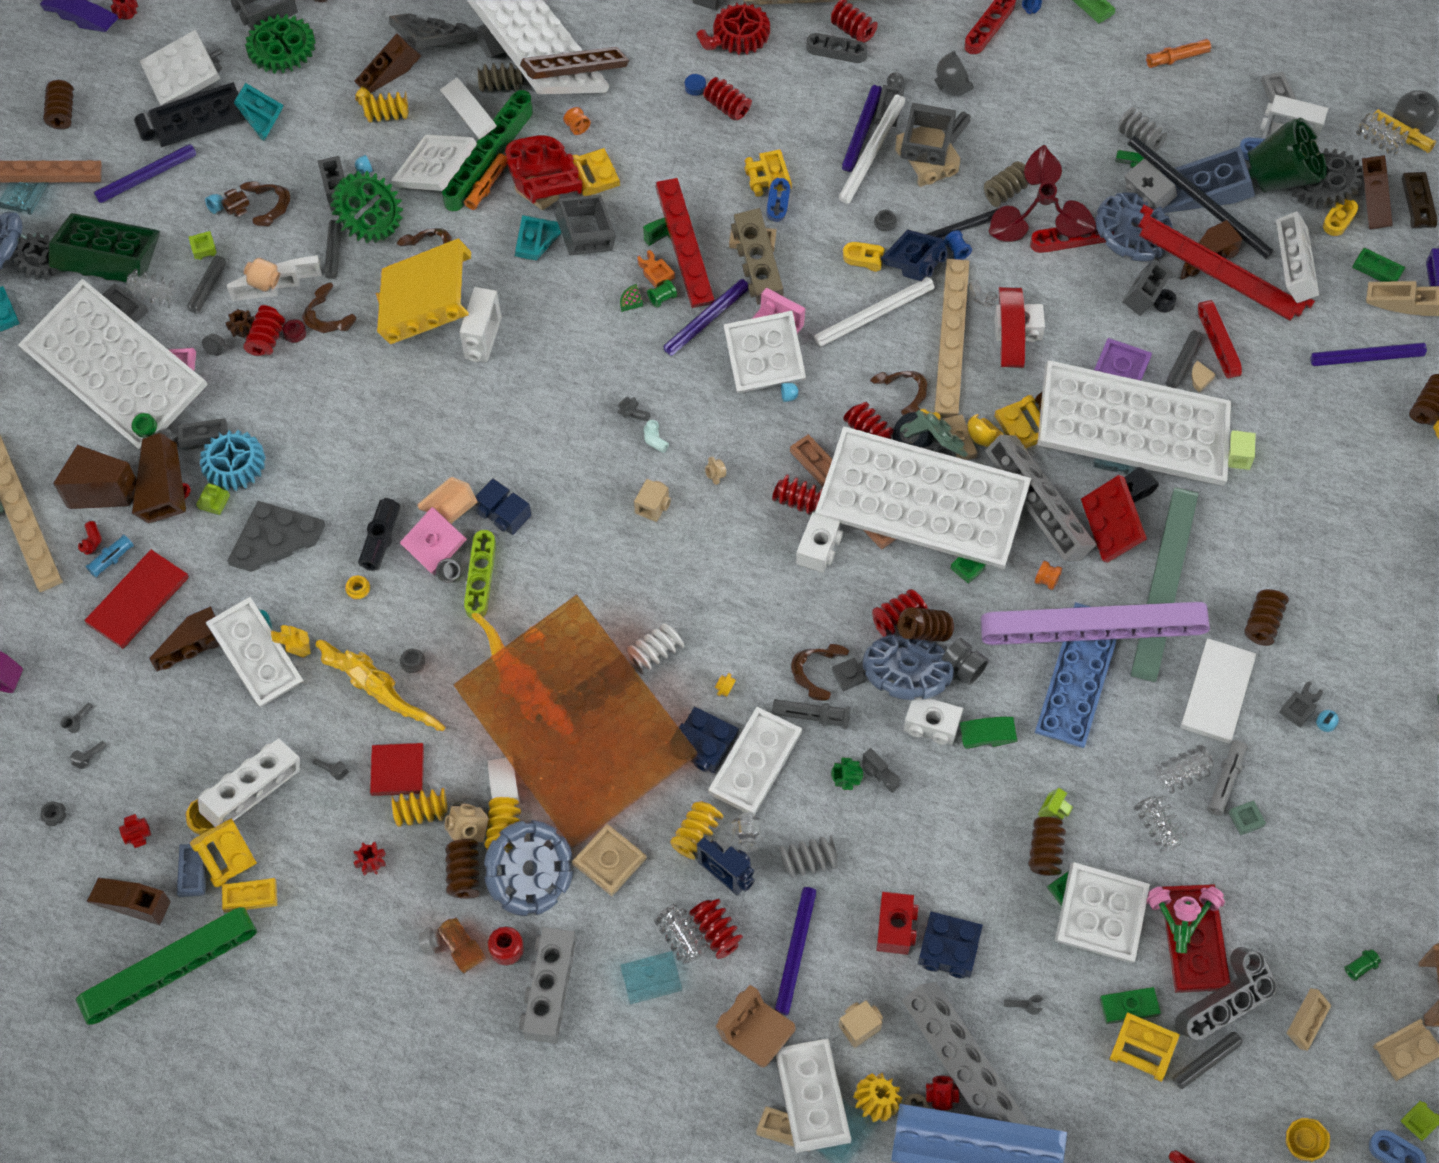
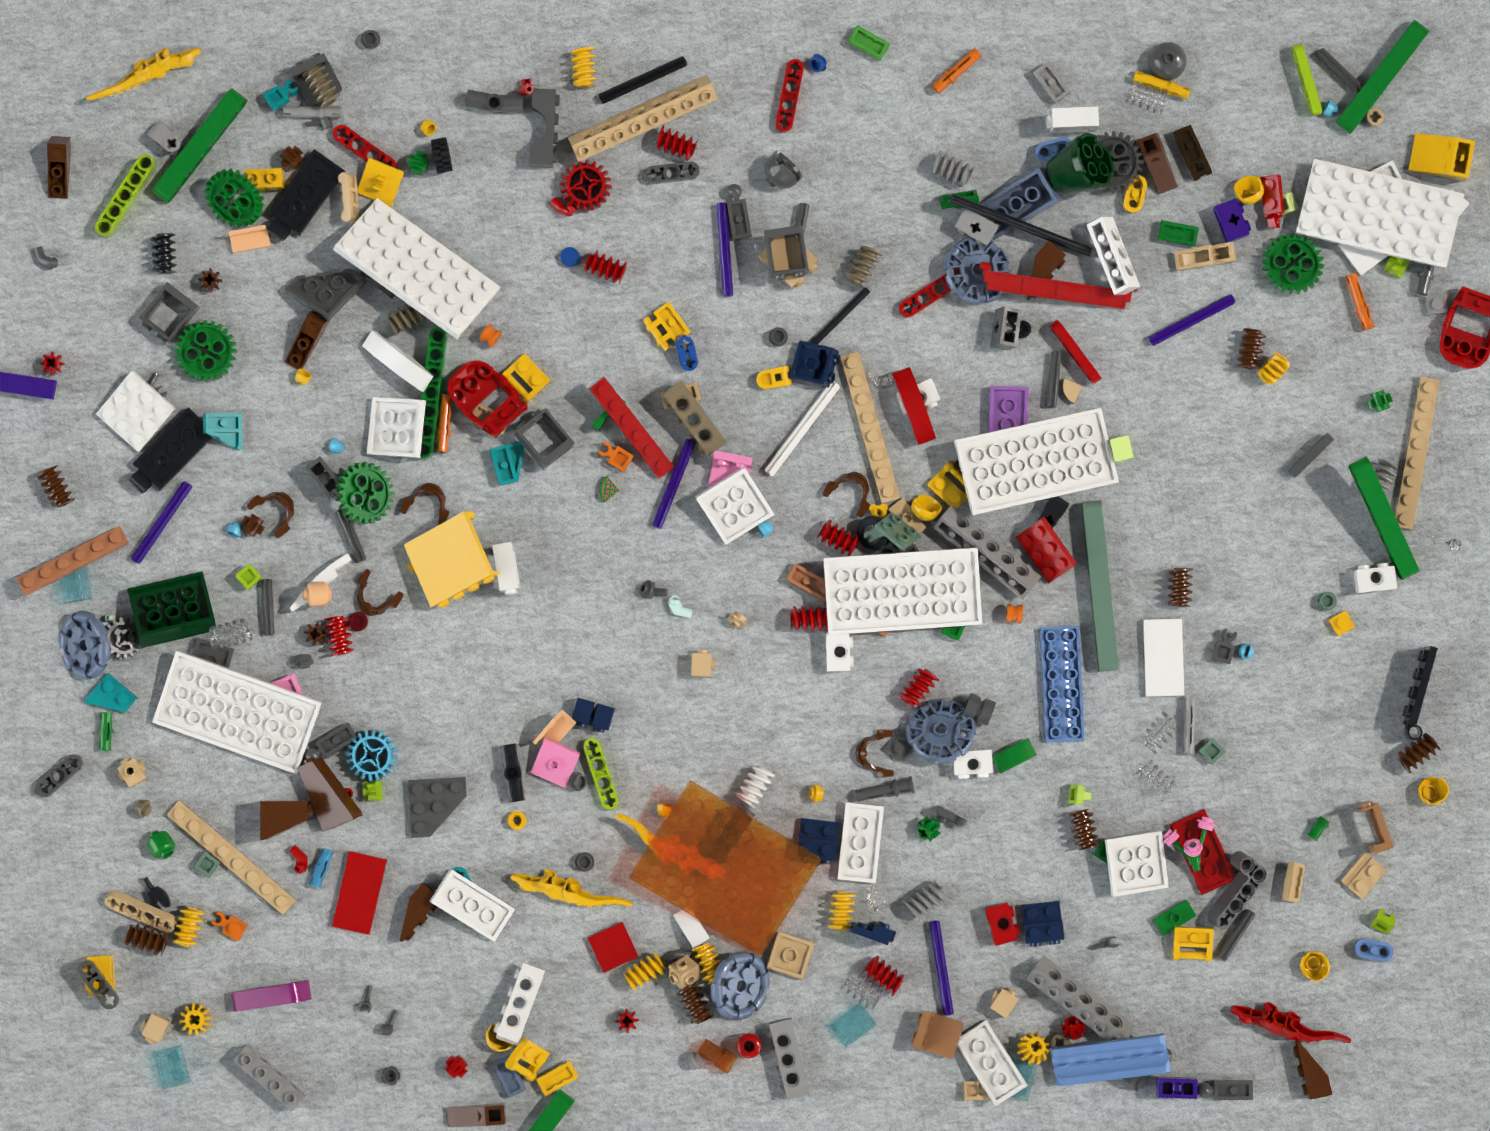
camera: 25 degrees left, 25 degrees up
(144, 425) = (292, 756): green tile -> none
(294, 639) = (494, 882): yellow plate -> none
(338, 771) = (572, 965): dark grey hand -> none
(385, 107) = (327, 384): yellow piece -> none
(574, 62) = (471, 292): reddish brown plate -> none
(662, 293) = (631, 477): green bush -> none
(872, 149) = (742, 273): white axle -> none
(925, 624) = (942, 695): reddish brown piece -> none
(958, 245) = (844, 340): blue bush -> none
(1046, 170) = (927, 285): dark red plant -> none
(1095, 623) = (1061, 646): lavender beam -> none

